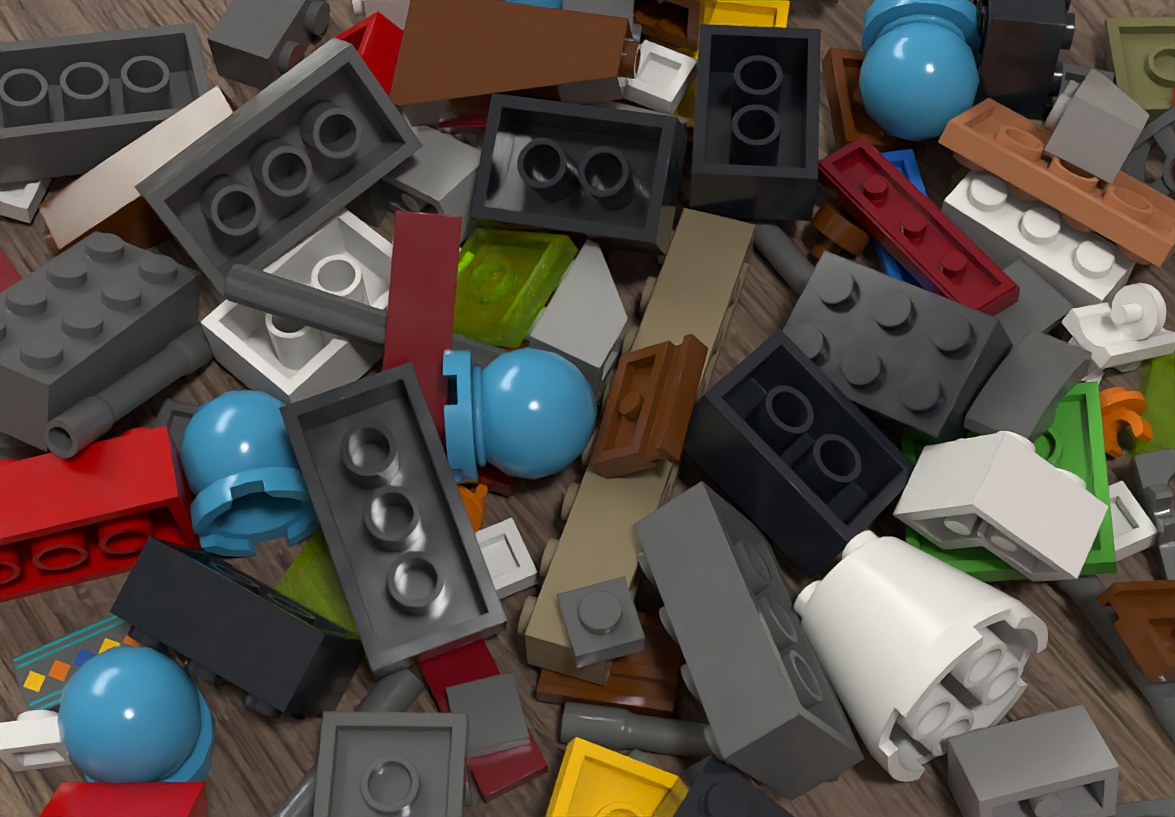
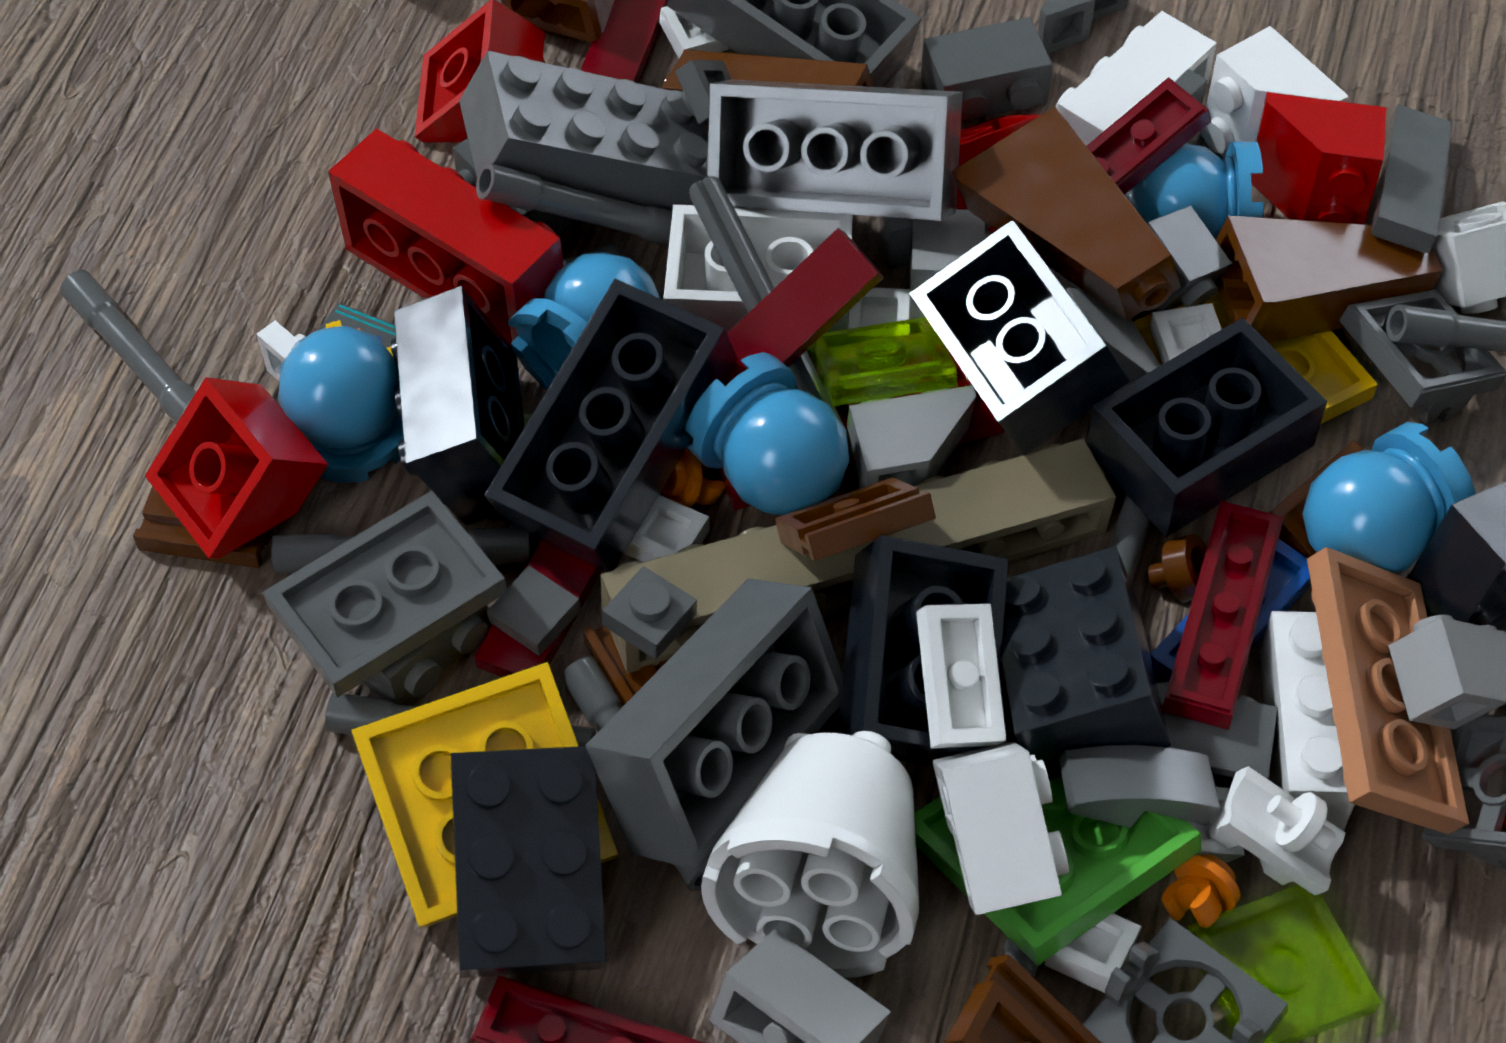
camera: 50 degrees right, 5 degrees down
(119, 215) = (695, 82): none -> dark grey plate
(860, 436) = (960, 675): none -> white plate

